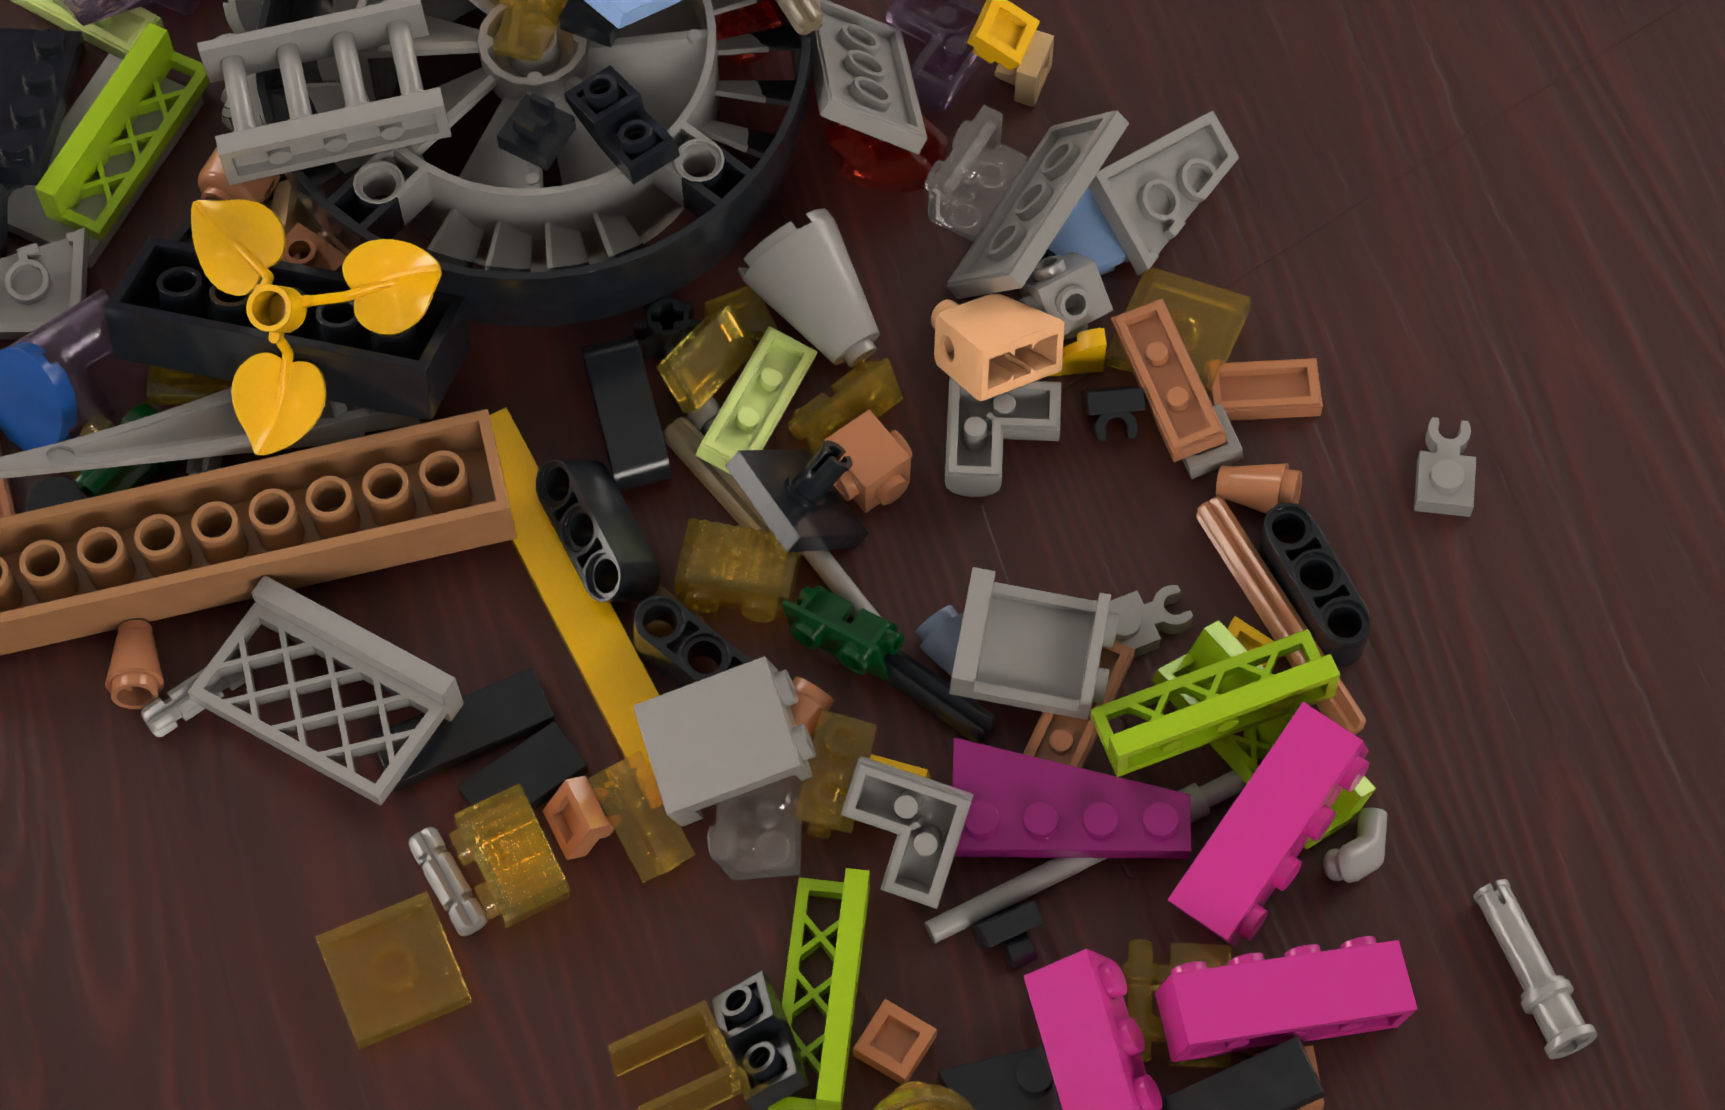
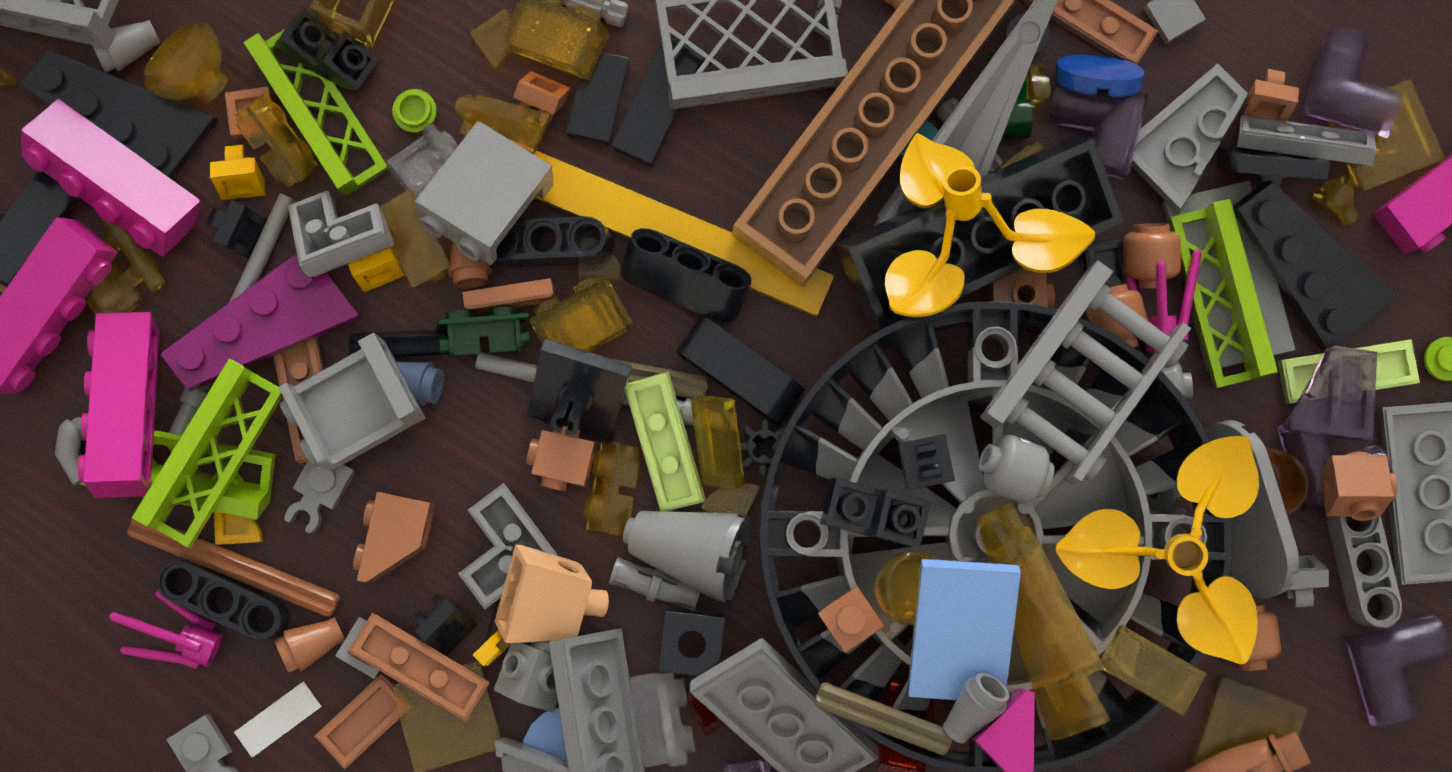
camera: 135 degrees right, 20 degrees up
(149, 209) = (1146, 247): none -> nougat head
(196, 141) = (1162, 320): none -> dark pink plant
(463, 58) = (1016, 469): none -> light grey head
(573, 923) = (489, 37): none -> clear yellow tile
(653, 42) = (898, 586): none -> clear yellow hair
(722, 912) = (414, 110): none -> lime plate
(726, 61) = (850, 619): none -> nougat plate
(786, 647) = (510, 295): none -> nougat tile
(871, 219) = (679, 622): none -> black piece
(884, 300) = (653, 584): none -> light grey pin
(892, 961) = (289, 156): none -> clear yellow hinge
(961, 986) = (237, 175): none -> yellow tile
(1093, 515) = (395, 534): none -> nougat slope
(1348, 455) = (277, 719): none -> white sticker
(1378, 570) = (196, 643): none -> dark pink plant

